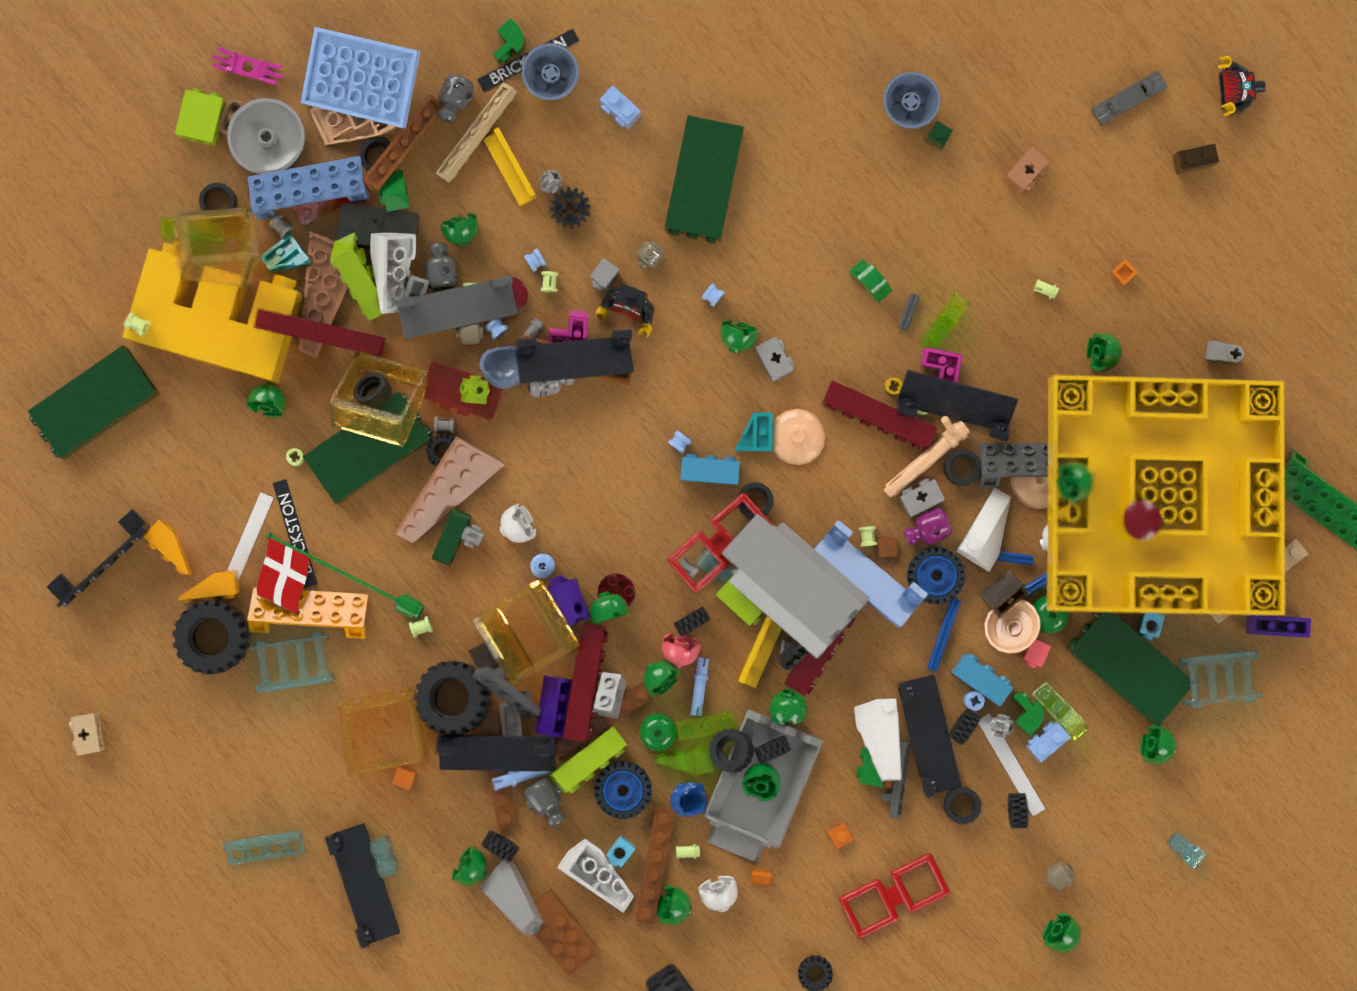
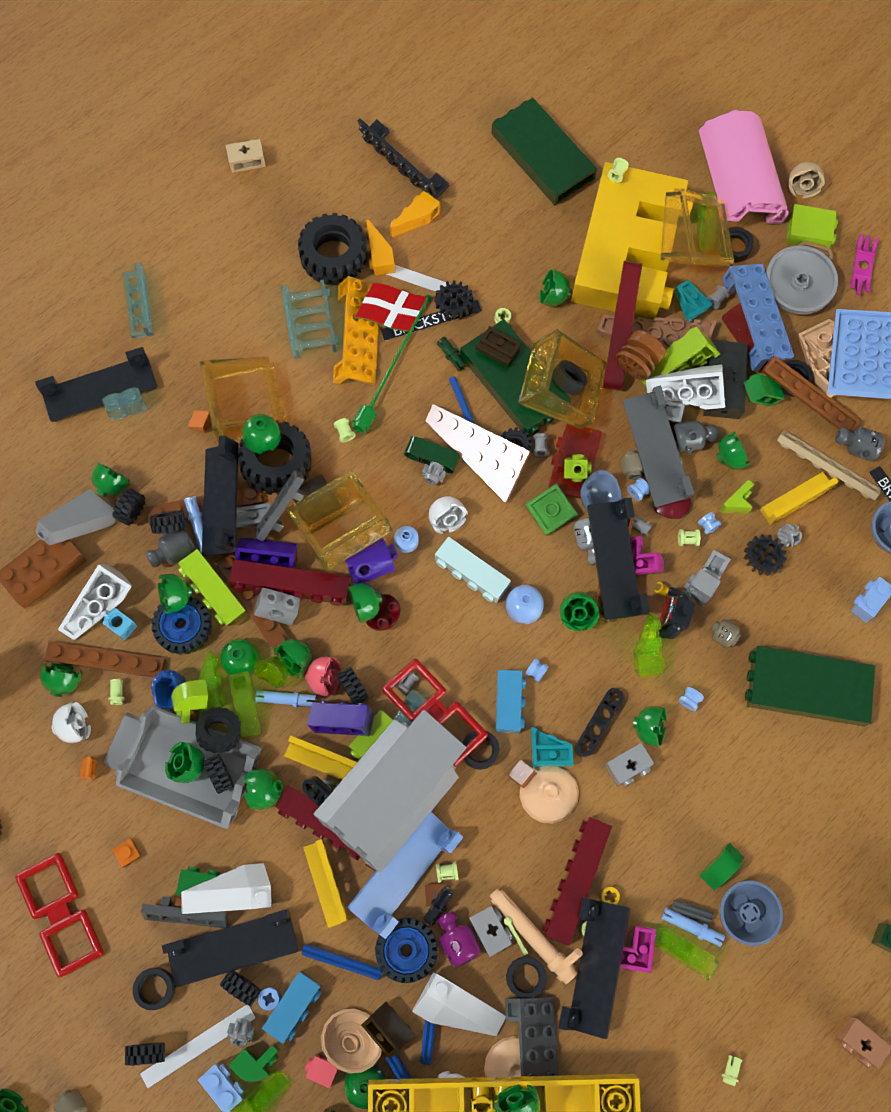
camera: 90 degrees right, 15 degrees down
(130, 186) = (743, 166): none -> bright pink cylinder
(142, 116) = (806, 179): none -> tan cylinder
(275, 498) = (444, 298): none -> black gear
(337, 464) = (498, 346): none -> dark brown plate
(337, 513) = (451, 354): none -> dark green pin
(358, 317) = (640, 355): none -> dark orange wheel
(391, 504) = (461, 400): none -> blue bar
(433, 710) = (261, 433): none -> green cylinder
(514, 231) = (737, 502): none -> lime slope
(514, 418) = (551, 509): none -> bright green tile
(519, 805) = (167, 522): none -> black tyre
(576, 500) = (472, 570): none -> light aqua brick
(579, 258) = (716, 564): none -> light grey bracket
(595, 796) = (173, 592): none -> green cylinder
(612, 450) = (524, 604): none -> light blue cylinder
(624, 397) = (579, 611): none -> green cylinder
(668, 334) = (647, 652): none -> clear neon green slope
(673, 698) = (272, 670): none -> clear neon green hair
(701, 778) = (188, 697): none -> lime brick
(723, 632) = (341, 718): none -> dark purple brick
(730, 387) = (600, 723): none -> black beam
(779, 461) = (522, 774): none -> tile
(874, 649) = (325, 884): none -> yellow fence
(898, 545) = (438, 905): none -> black axle
(914, 481) = (508, 921): none -> yellowish green hinge
(918, 250) = (762, 915): none -> sand blue piece
(923, 312) = (700, 930): none -> light blue pin

